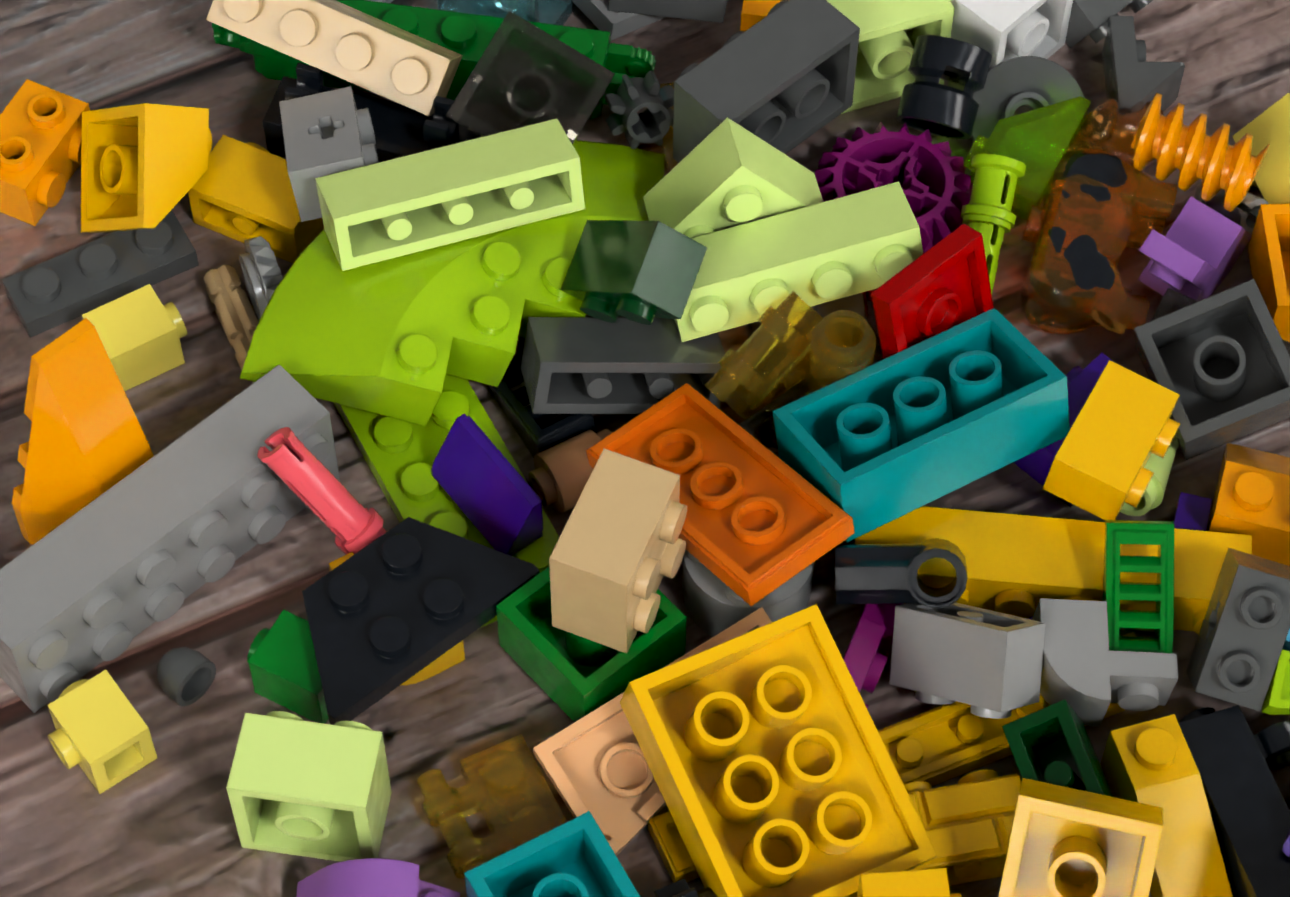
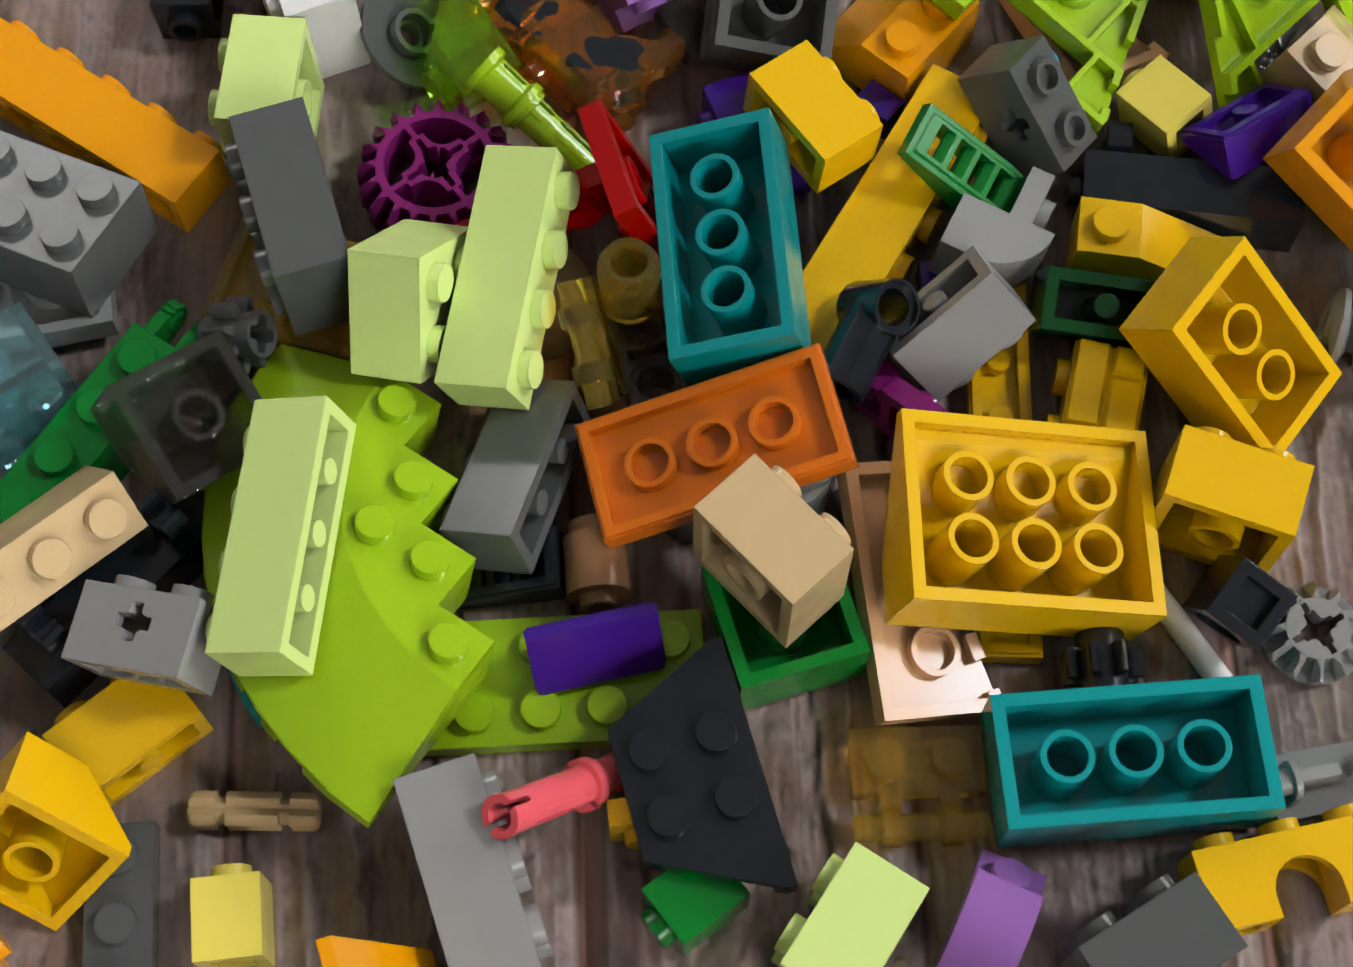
camera: 65 degrees left, 10 degrees up
(259, 272) = (245, 765): light grey gear -> none
(633, 270) = (462, 407): dark green brick -> none
(941, 108) = (365, 74): black wheel -> none

